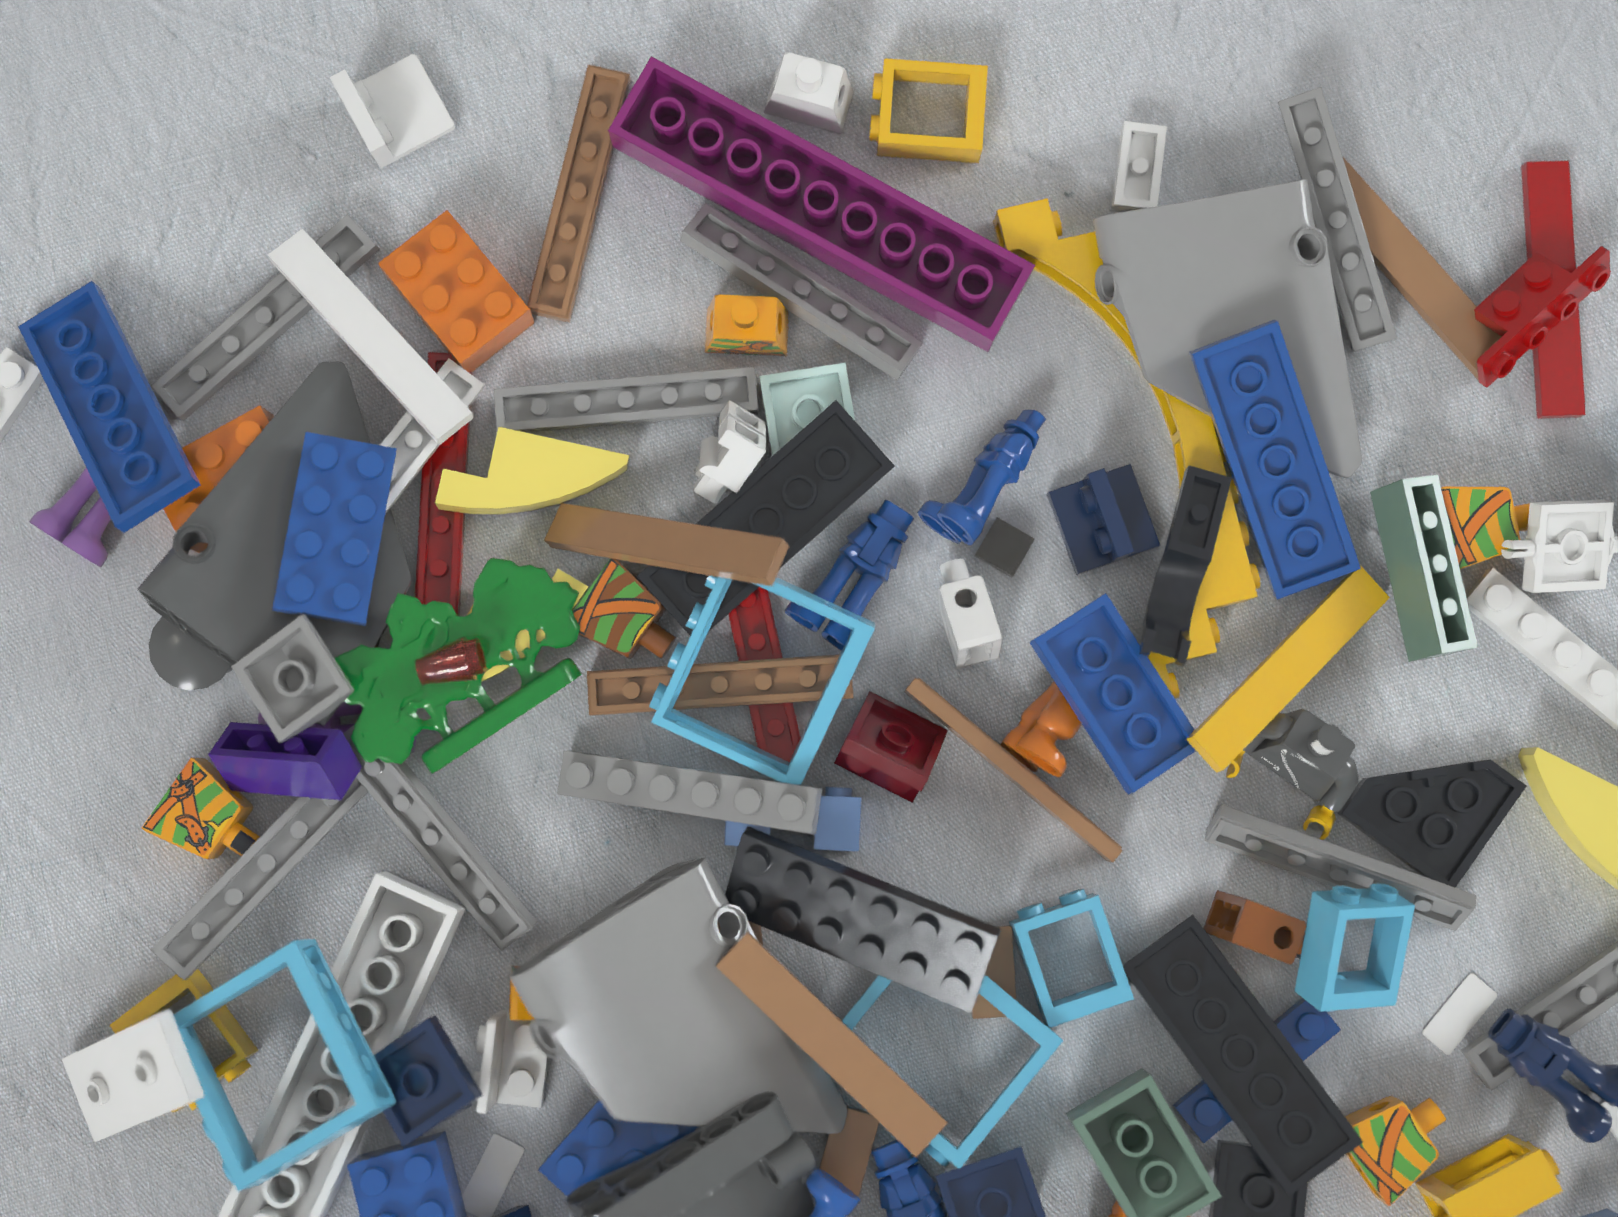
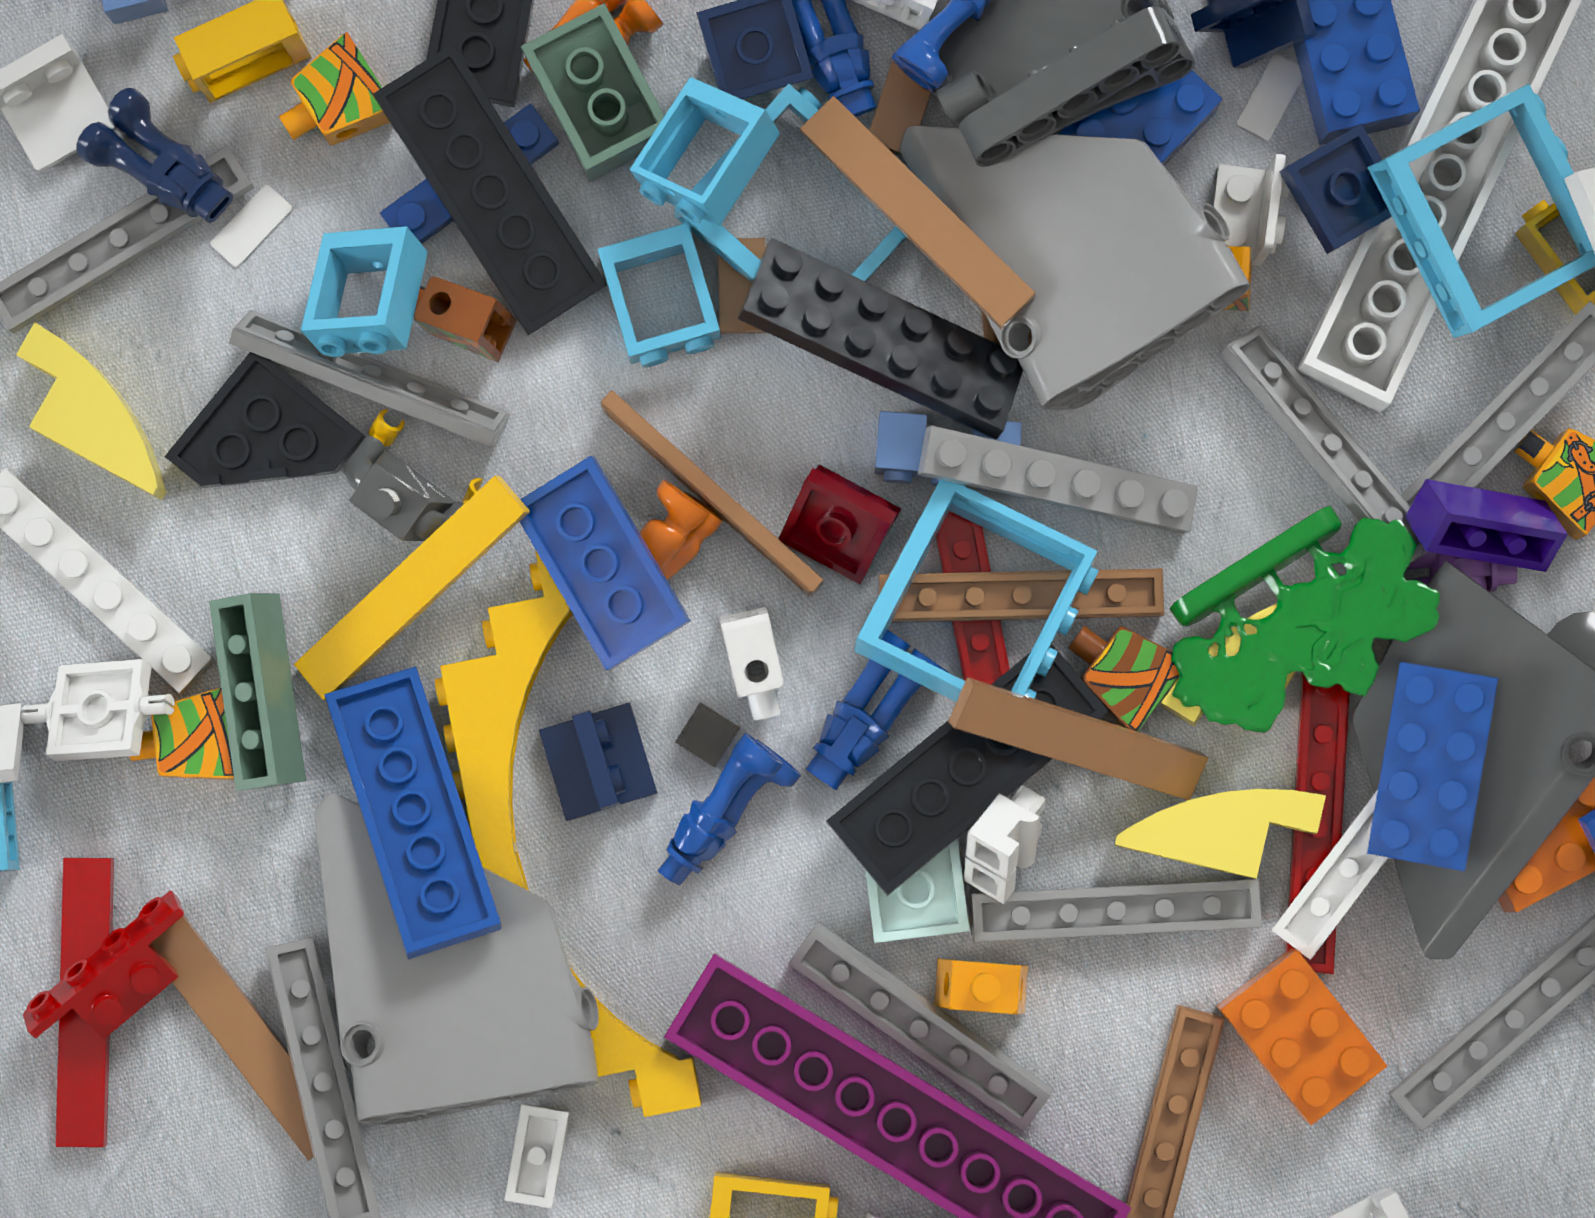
camera: 175 degrees left, 0 degrees up
(293, 679) = (1476, 604): light grey slope -> none
(371, 336) = (1396, 985): white tile -> none
(452, 663) = (1306, 618): clear red cone -> none
(1067, 1112) = (674, 134): none -> medium azure window
(1184, 564) = (519, 699): black piece -> none

